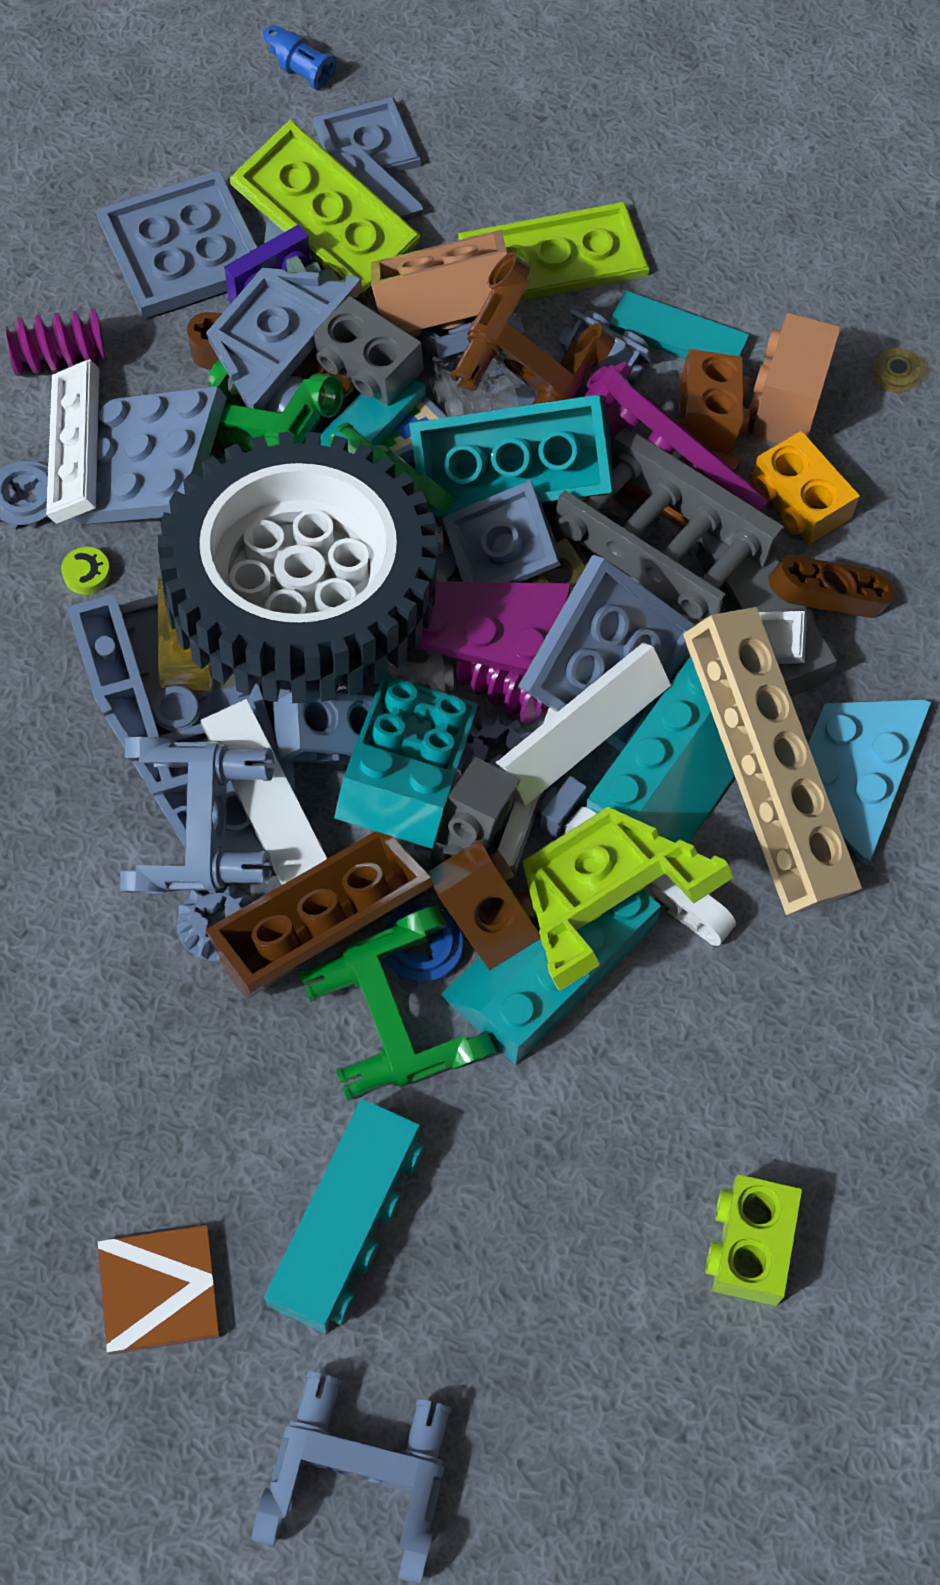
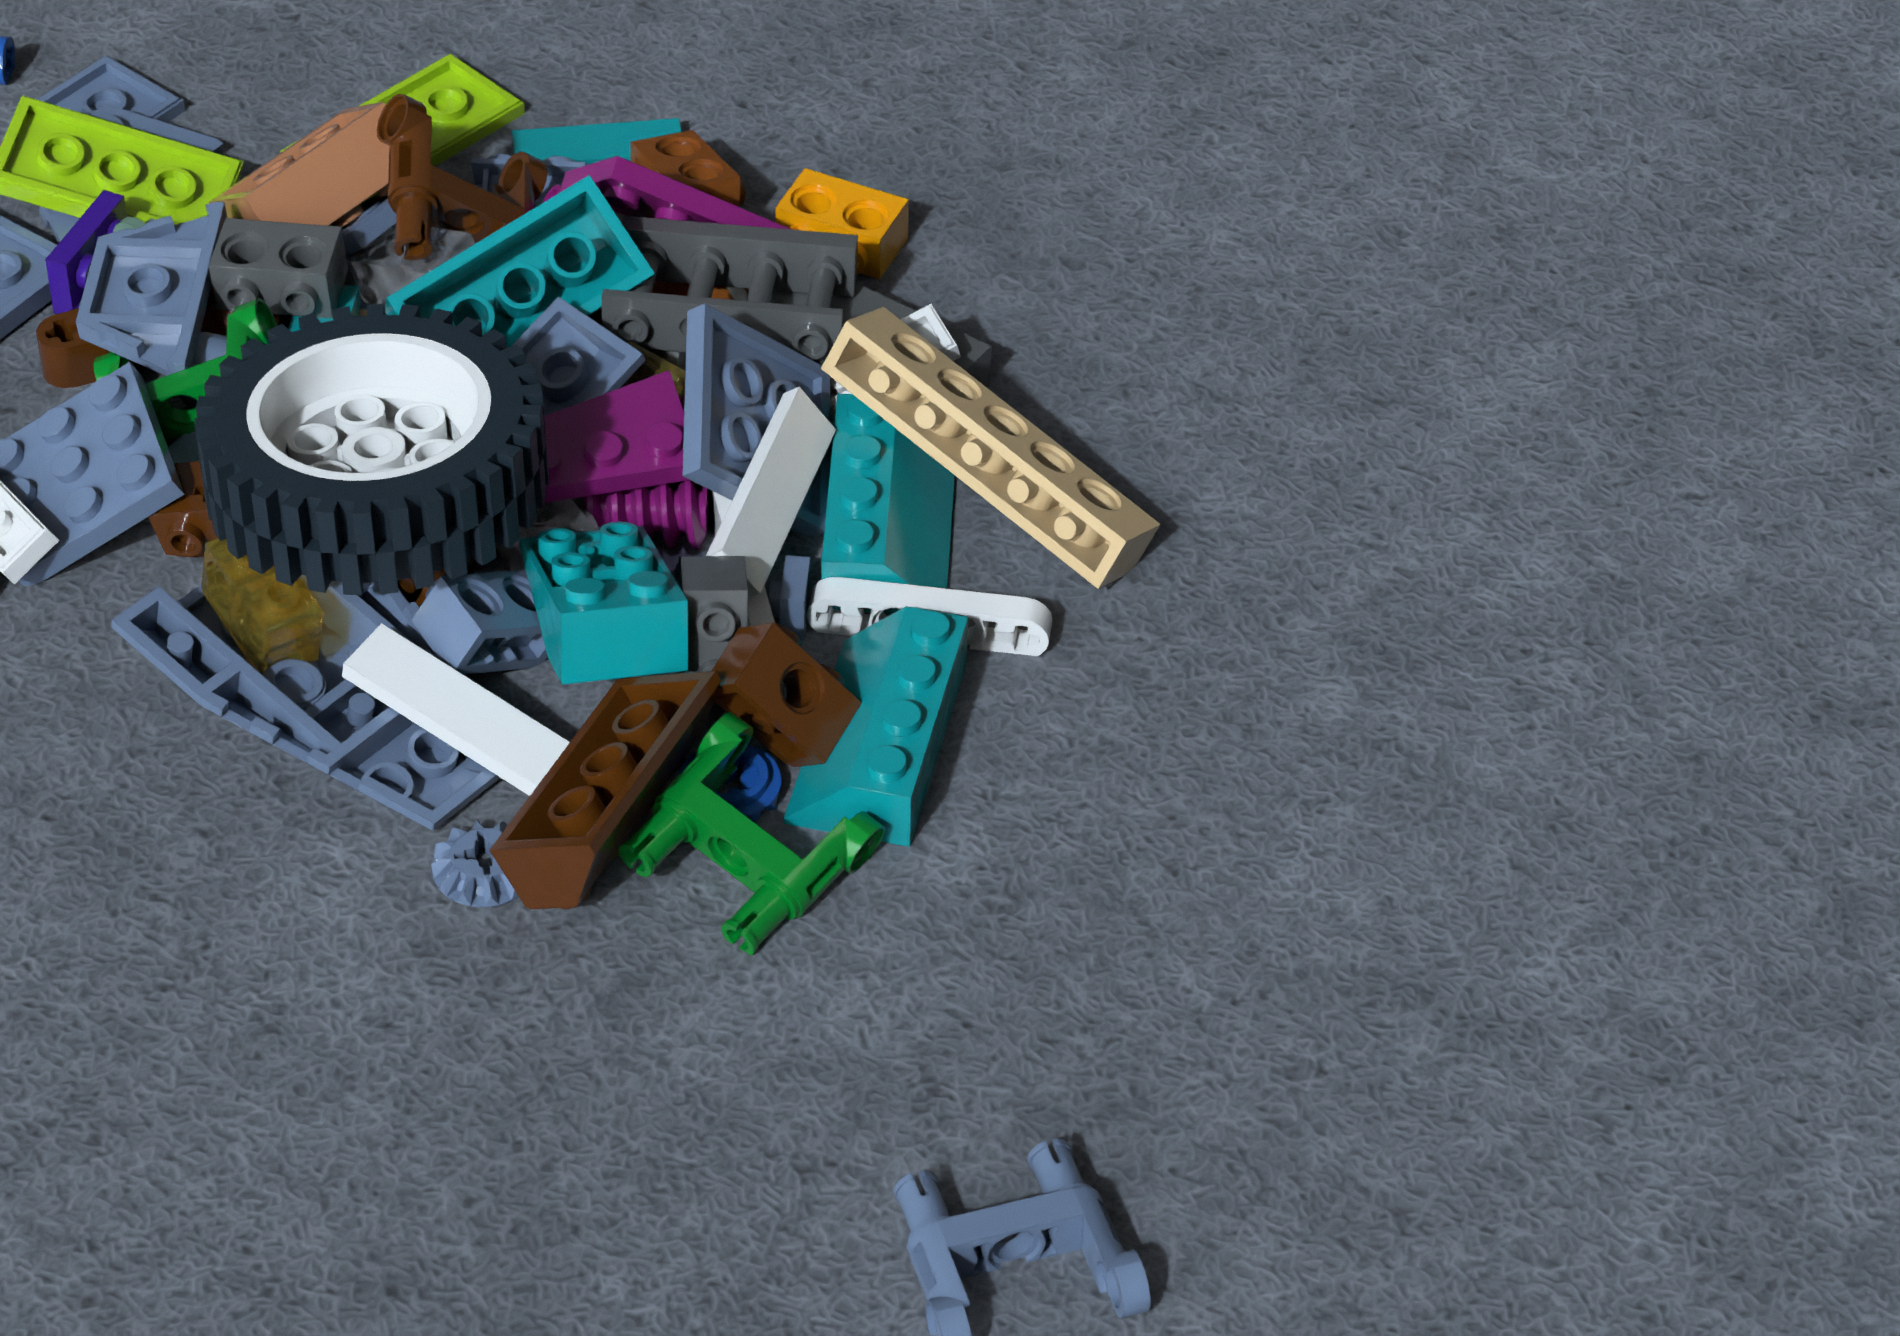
camera: 30 degrees left, 20 degrees down
(86, 570) = (79, 620): lime tile -> none
(158, 1290) = (672, 1206): dark orange tile -> none
(206, 859) = (392, 694): sand blue connector -> none
(343, 1217) = (831, 1041): teal brick -> none
(597, 869) = (885, 595): lime wing -> none
(766, 1243) = (1271, 864): lime brick -> none
(792, 378) = (764, 123): nougat brick -> none
(804, 583) = (944, 286): reddish brown beam -> none
(861, 762) = (1088, 419): medium azure wing -> none
(897, 370) = (860, 92): clear yellow tile -> none

